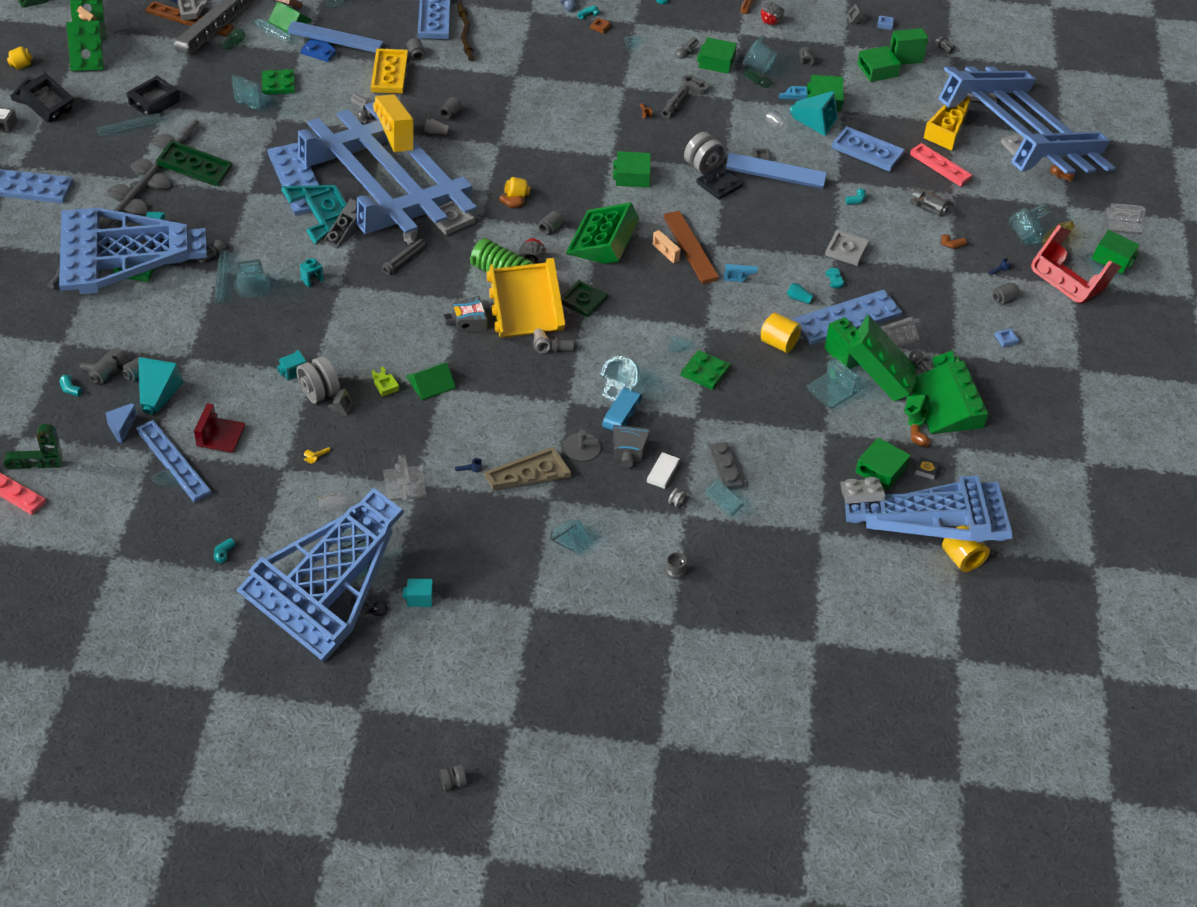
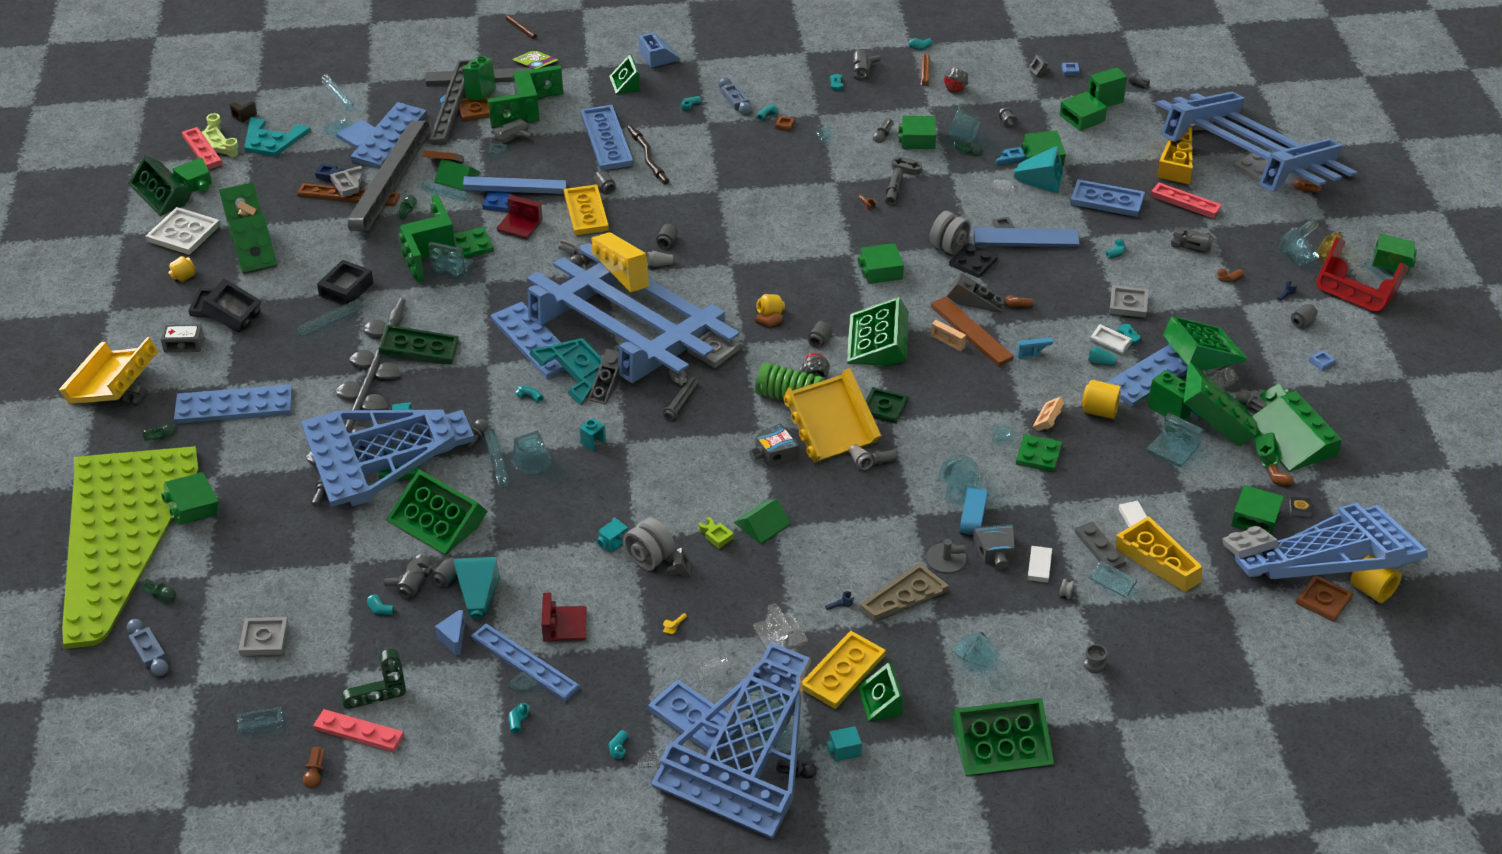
camera: 10 degrees left, 5 degrees down
(34, 24) = (182, 230): none -> white plate
(147, 506) = (516, 716): none -> teal arm
(149, 315) = (436, 513): none -> green slope
(240, 63) = (419, 234): none -> green bracket
(267, 222) = (532, 392): none -> teal arm
(289, 527) = (682, 707): none -> medium blue plate
(330, 68) = (522, 217): none -> dark red bracket
(445, 526) = (843, 669): none -> yellow plate
(469, 557) = (881, 695): none -> green slope
(561, 617) = (1002, 736): none -> green slope
(704, 213) = (970, 293): none -> dark grey slope
(729, 335) = (1048, 414): none -> light nougat plate
(739, 227) = (1014, 302): none -> dark orange arm
(769, 447) = (1132, 512): none -> white tile
(773, 483) = (1159, 553): none -> yellow wedge
(815, 279) = (1111, 339): none -> white tile
(892, 300) = (1202, 344): none -> green slope
(913, 556) = (1324, 598): none -> dark orange tile
(1125, 218) = (1387, 219): clear bracket -> none

